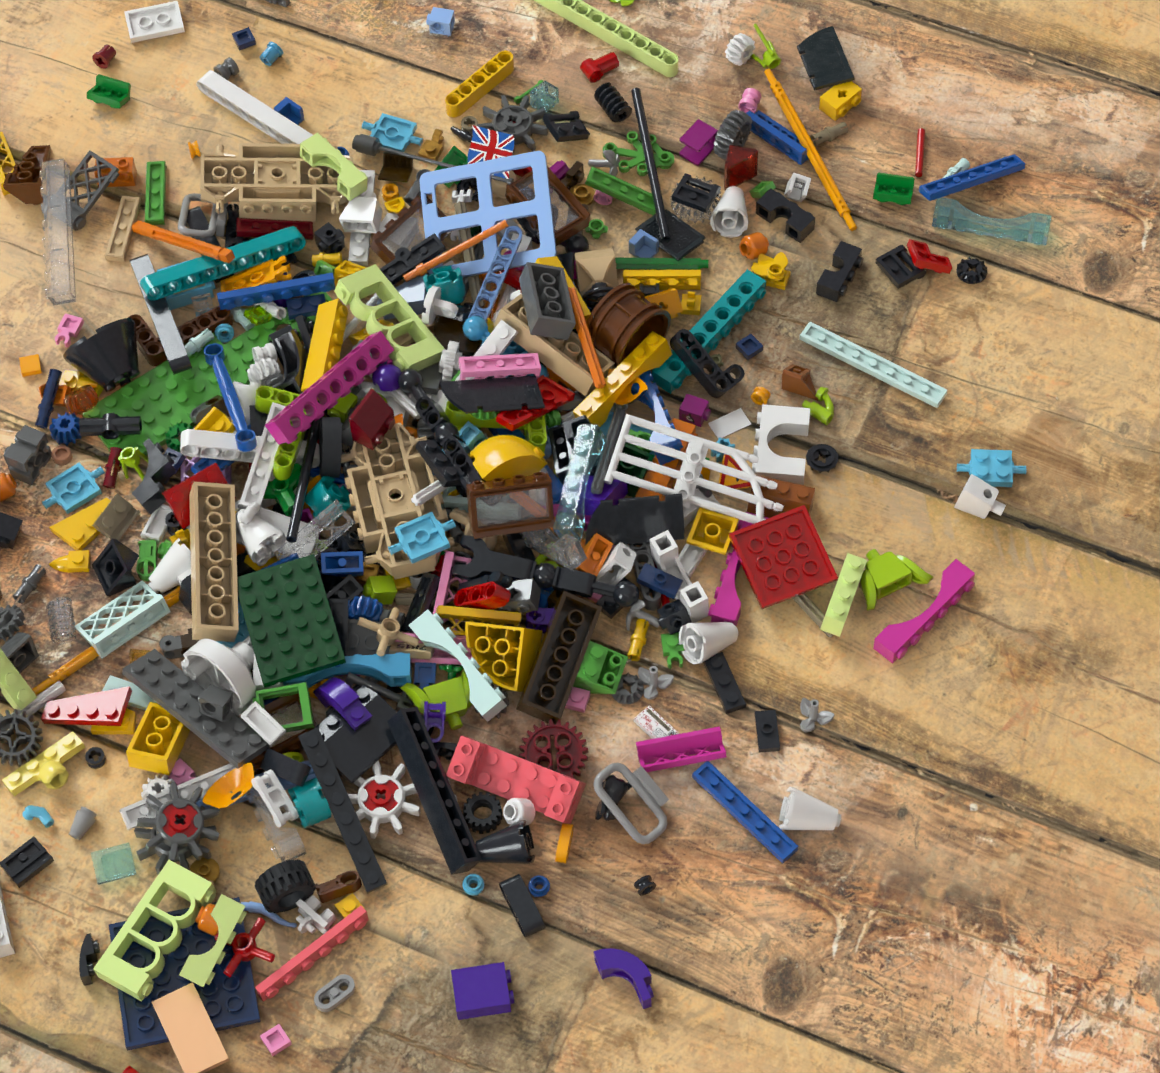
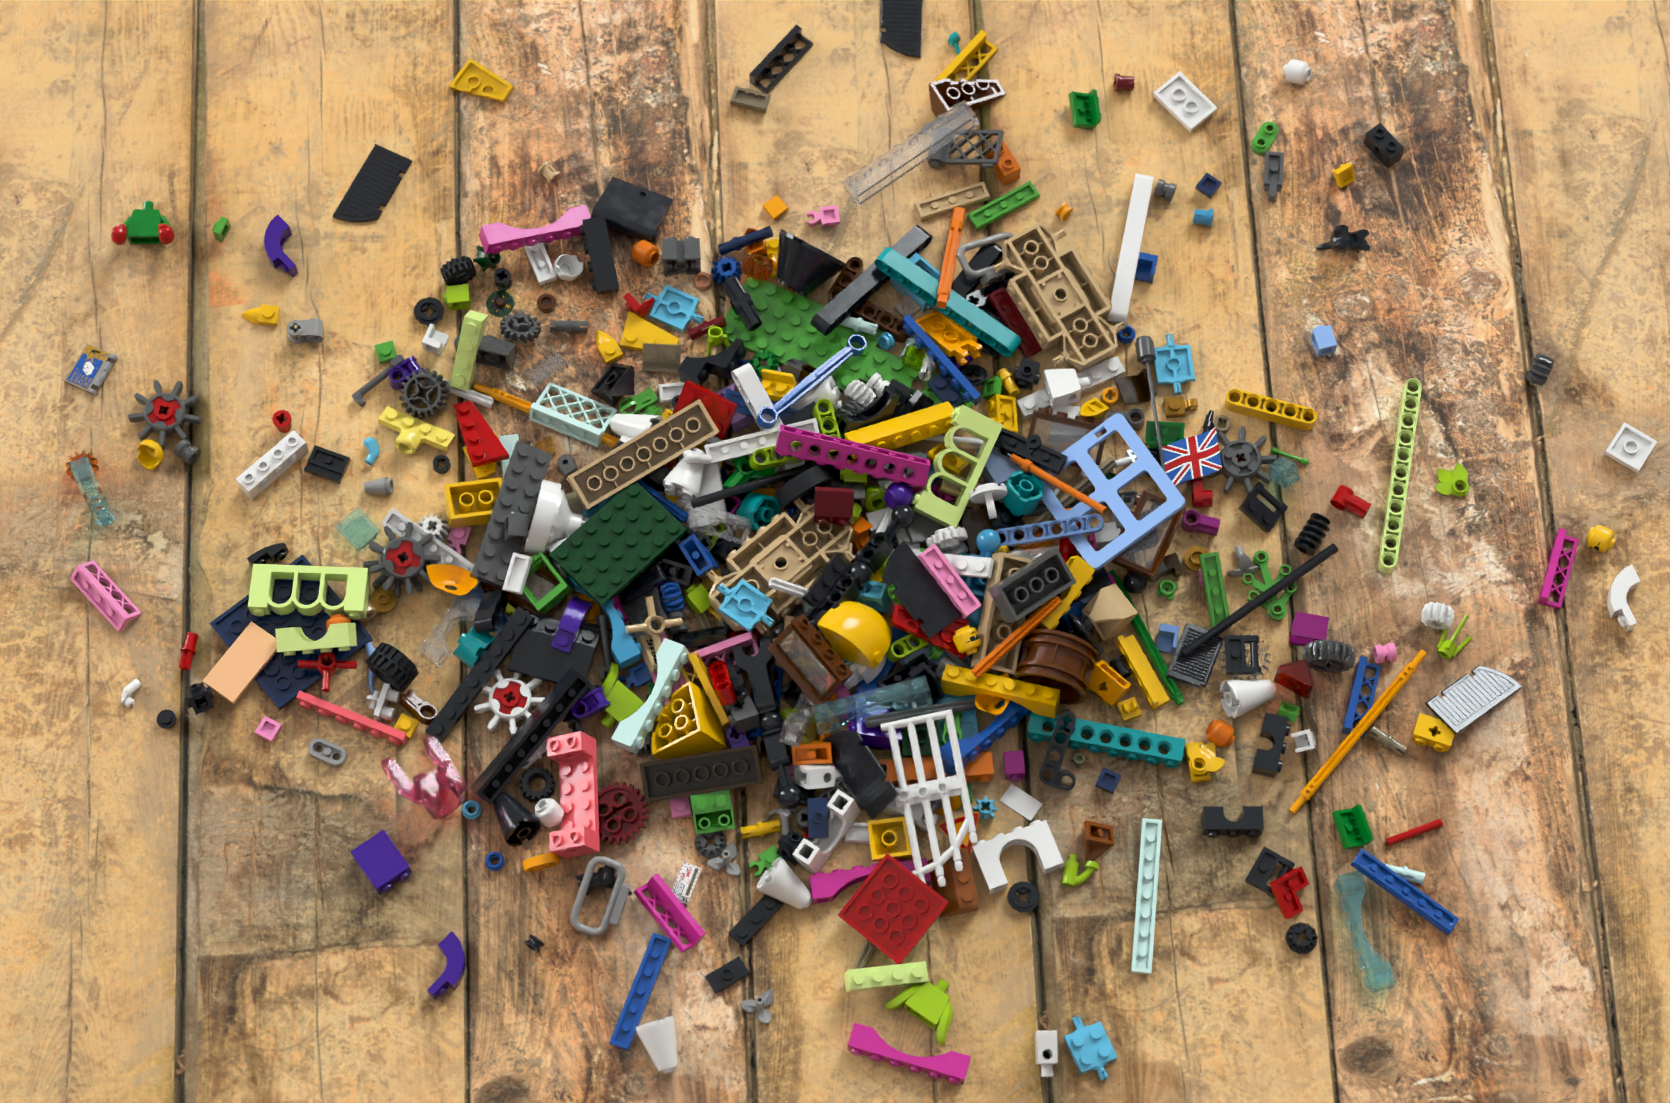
camera: 60 degrees right, 10 degrees up
(48, 518) = (633, 305): none -> red plate
(275, 798) = (460, 617): white plate -> none
(319, 152) = (1084, 356): yellowish green arch -> none
(438, 902) = (437, 790): none -> clear pink piece
(522, 905) = (469, 856): black beam -> none
(563, 379) = (967, 640): none -> yellow head
(574, 175) = (1210, 541): dark brown plate -> none
(760, 395) = (1060, 814): light orange bush -> none

